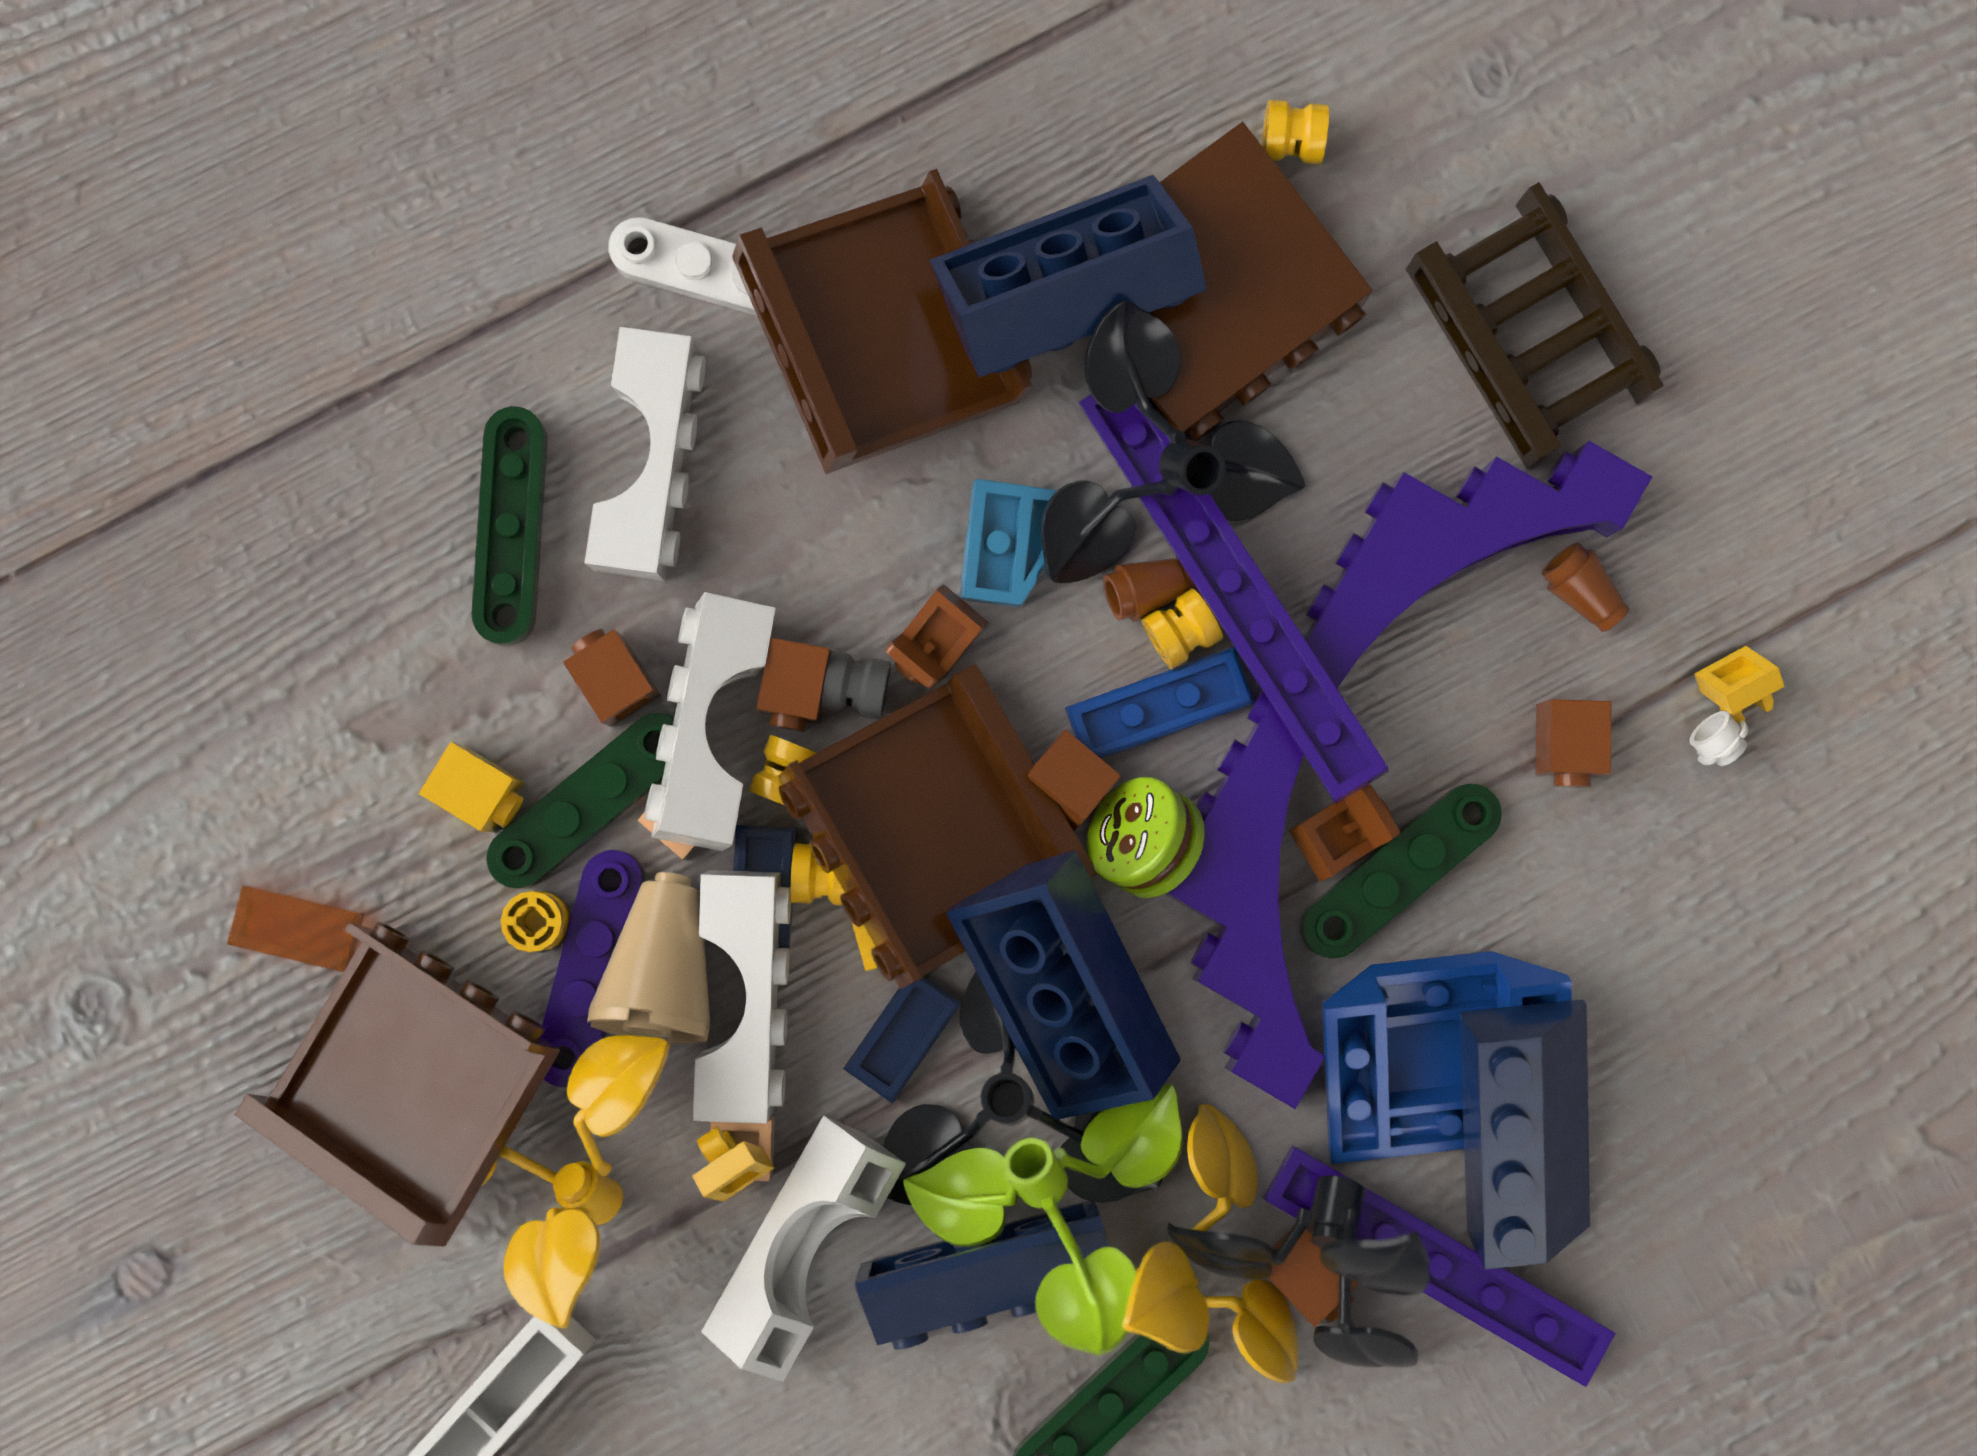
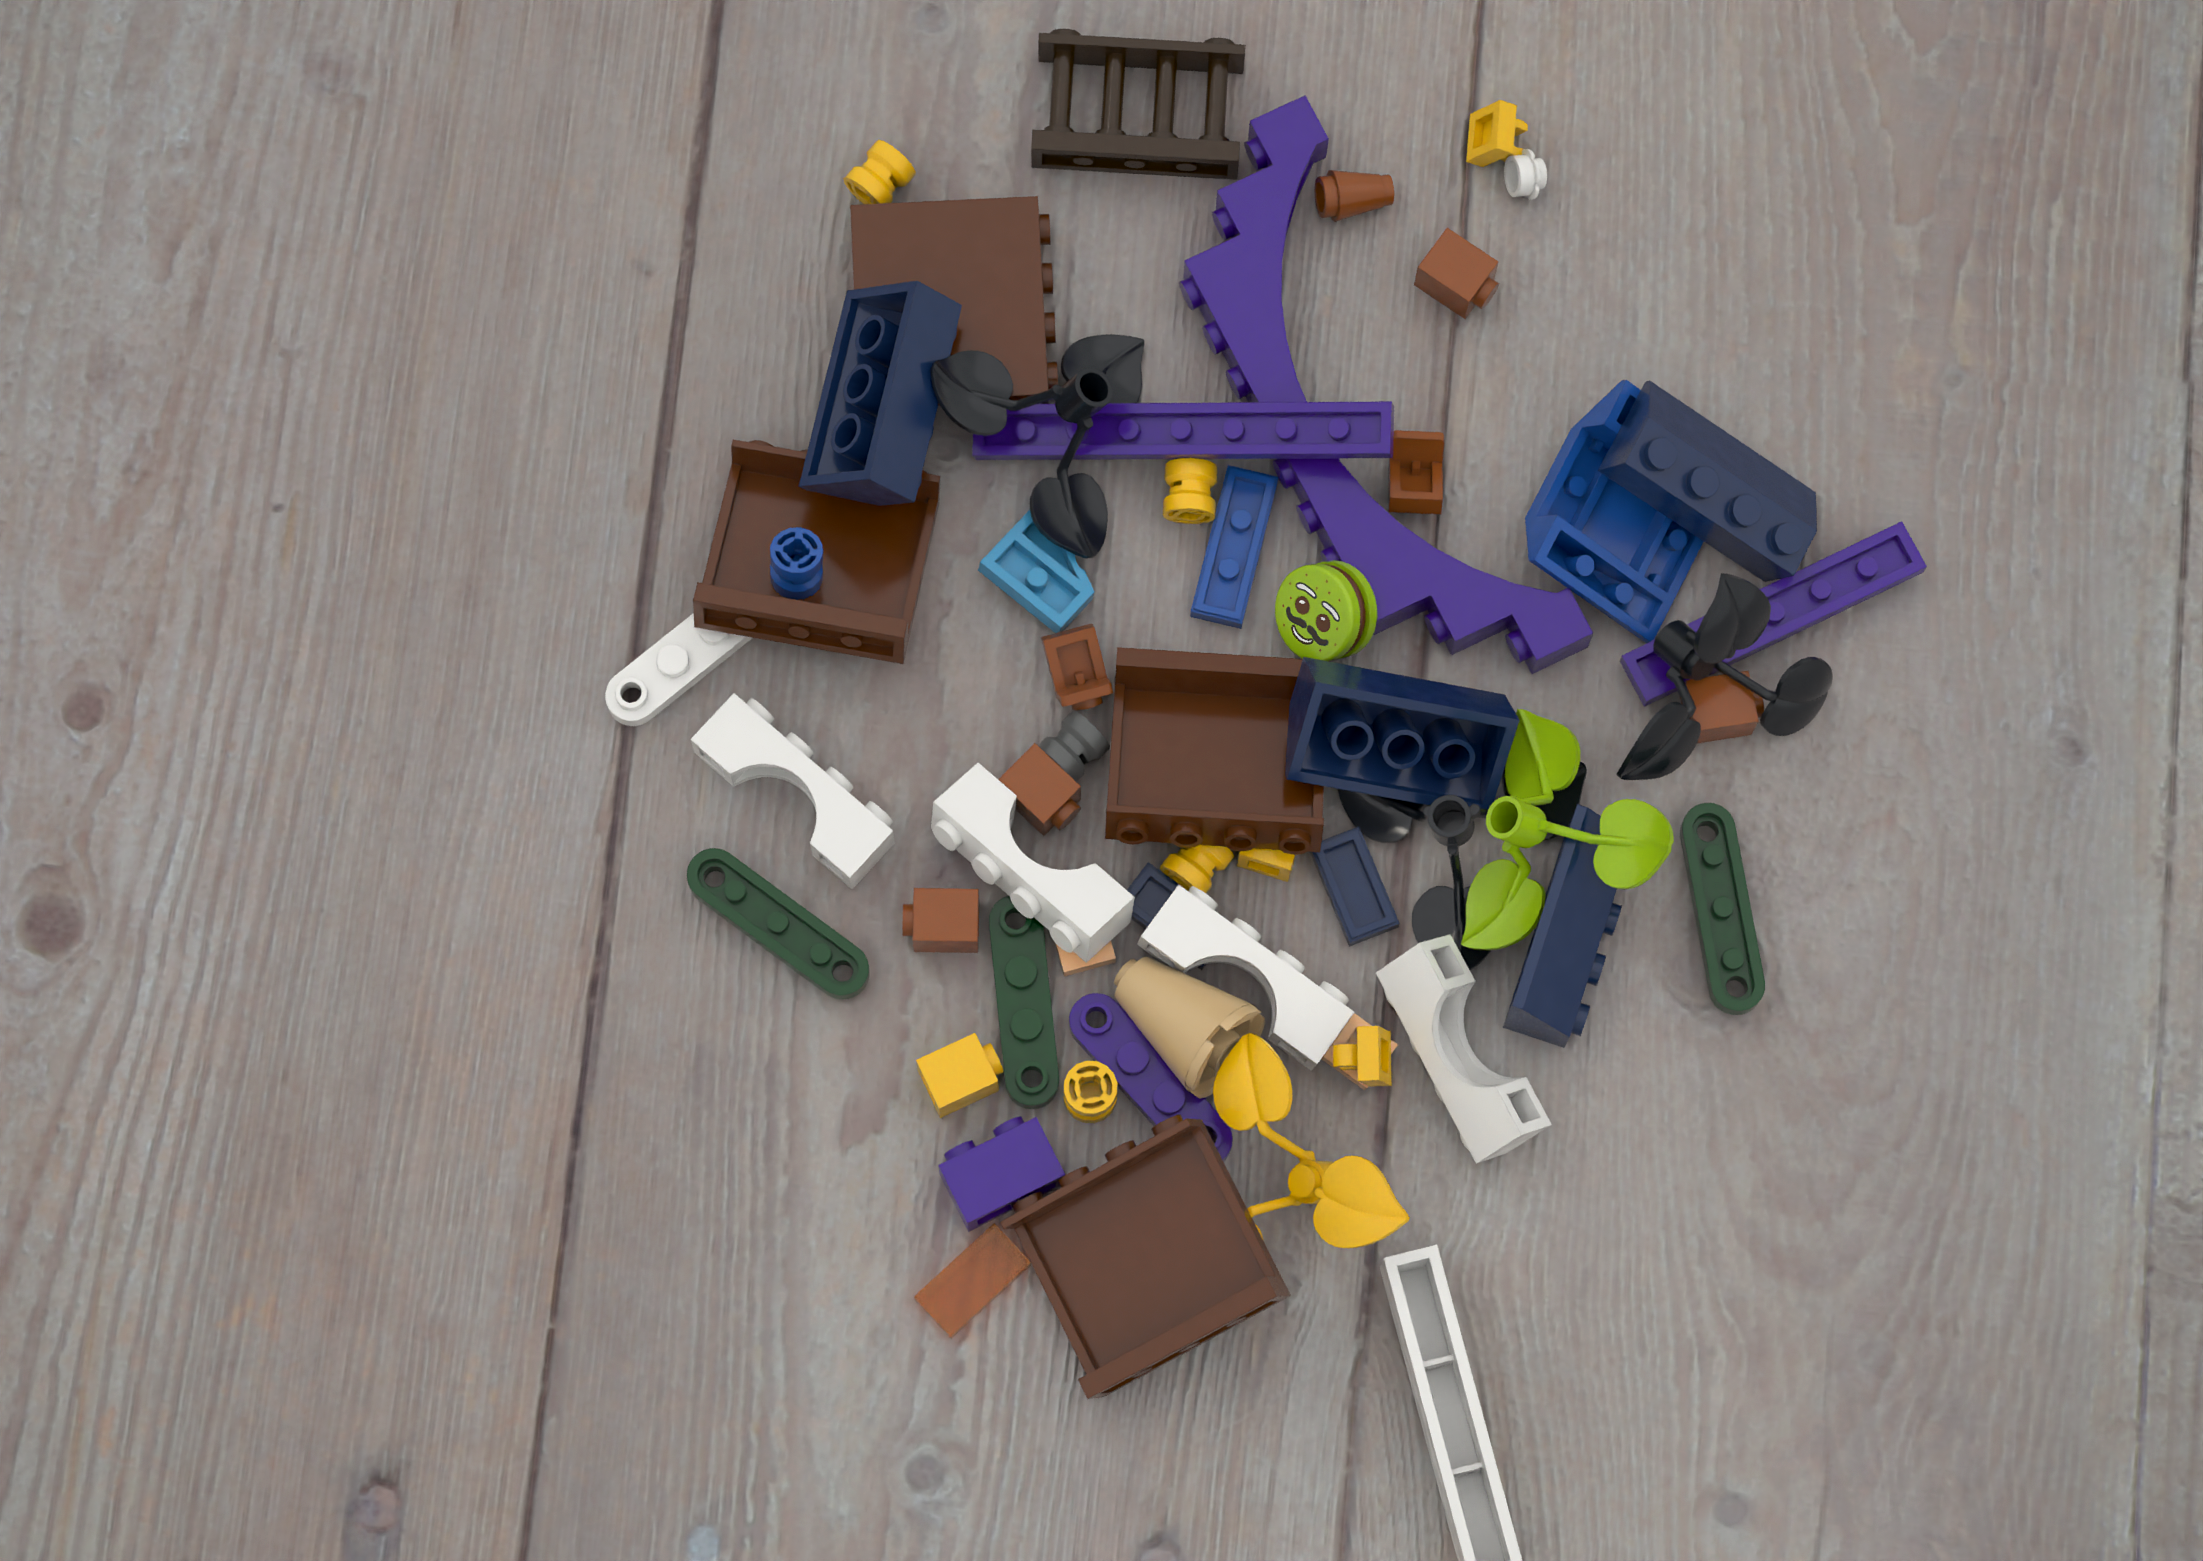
camera: 55 degrees left, 10 degrees down
(406, 890) = (1000, 1171): none -> dark purple piece
(778, 755) = (1090, 835): yellow wheel -> none
(848, 321) = (796, 563): none -> blue wheel
(1073, 777) = (1247, 632): dark orange panel -> none
(1144, 587) = (1141, 498): dark orange cone -> none
(1165, 1290) = (1665, 788): yellow plant -> none
(1400, 870) = (1471, 456): dark green plate -> none

